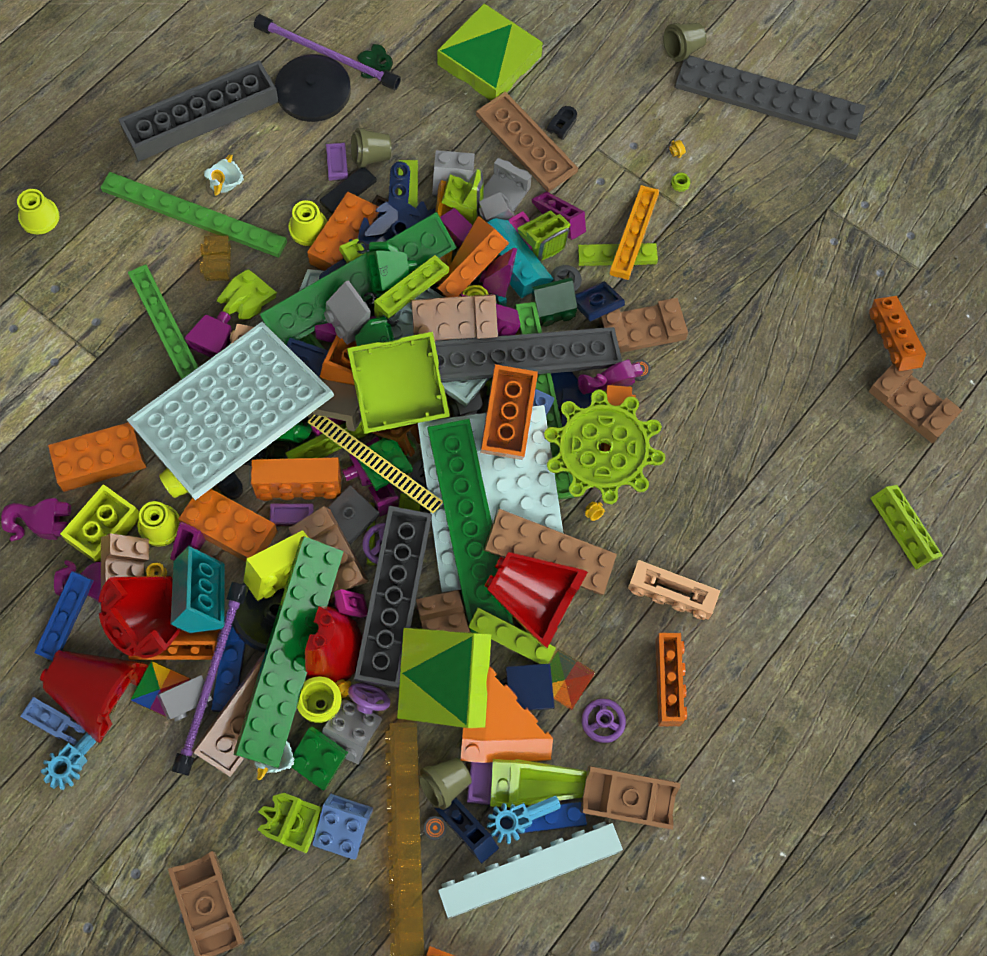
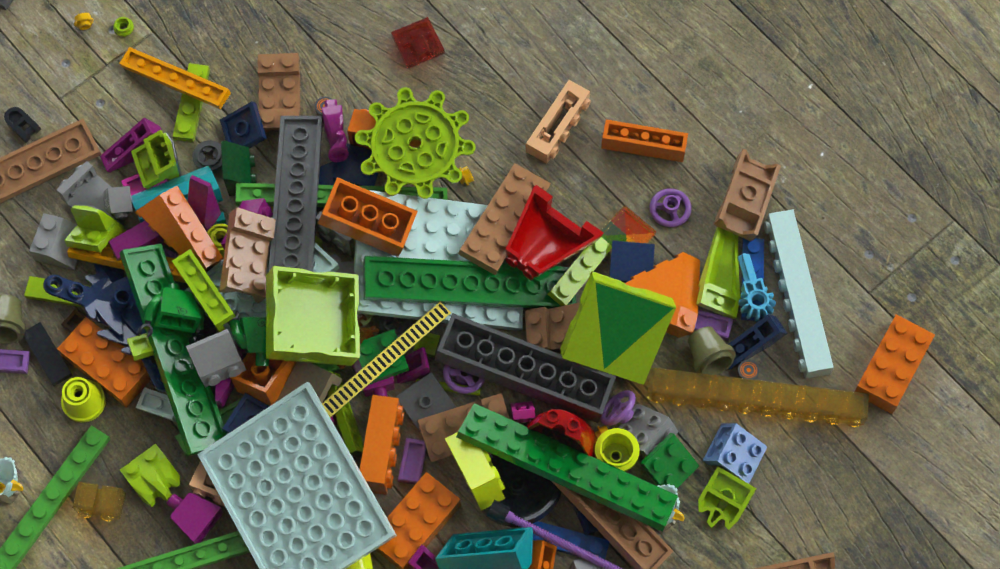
camera: 75 degrees left, 0 degrees up
(729, 440) = (417, 42): none -> clear red plate

